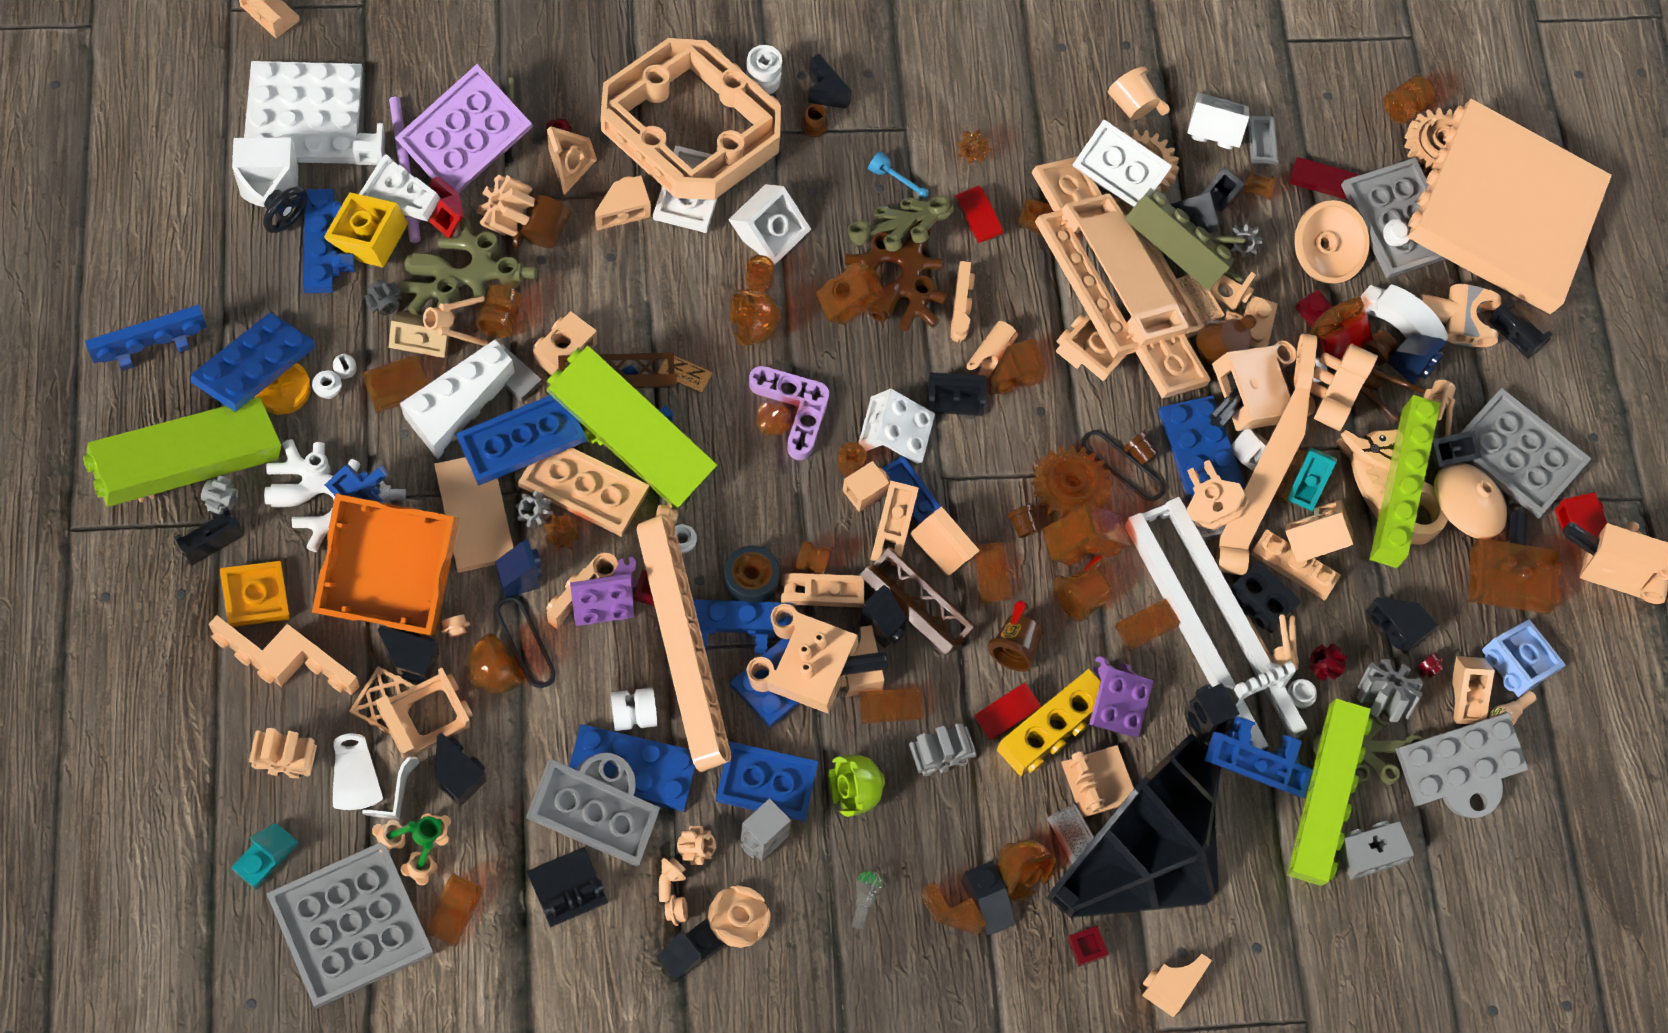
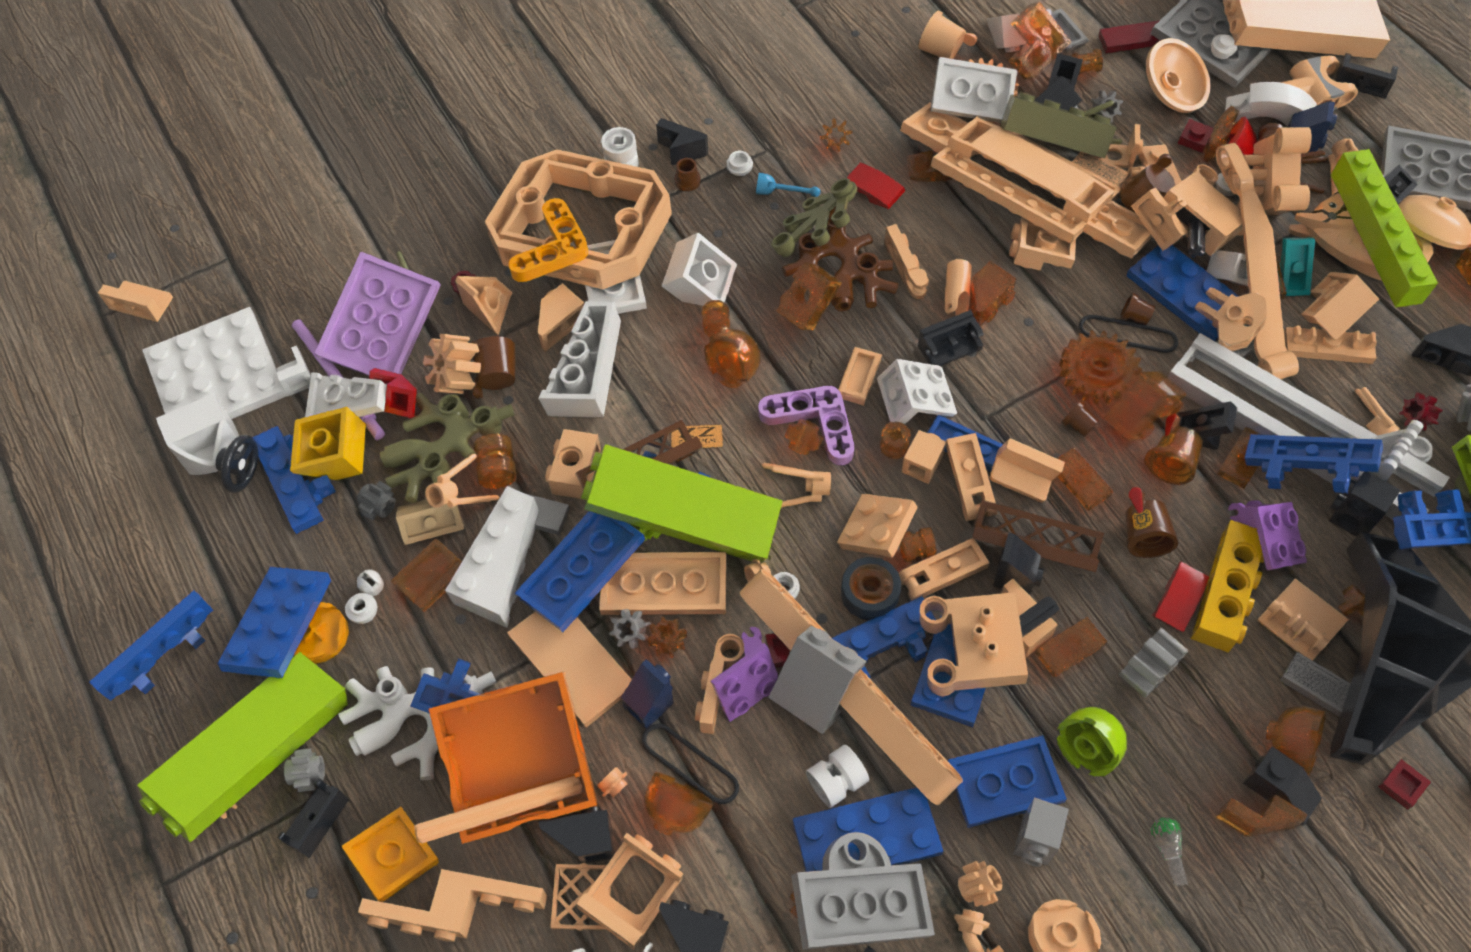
camera: 15 degrees left, 5 degrees down
(353, 599) = (497, 809): none -> light nougat axle
(623, 261) = (584, 372): none -> white wedge
(653, 143) = (559, 247): none -> light orange beam
(657, 623) = (816, 678): none -> light grey panel
(760, 463) = (815, 482): none -> light nougat plant
(788, 525) = (877, 525): none -> light nougat plate
(857, 387) = (859, 375): none -> light nougat tile
(869, 132) = (739, 163): none -> white plate
(1129, 579) = (1210, 422): none -> black slope
(1207, 659) = (1337, 455): none -> blue hinge
(1209, 374) = (1161, 217): none -> light nougat plate
(1220, 149) = (1043, 41): none -> clear orange brick
(1270, 592) = (1330, 382): black brick -> none

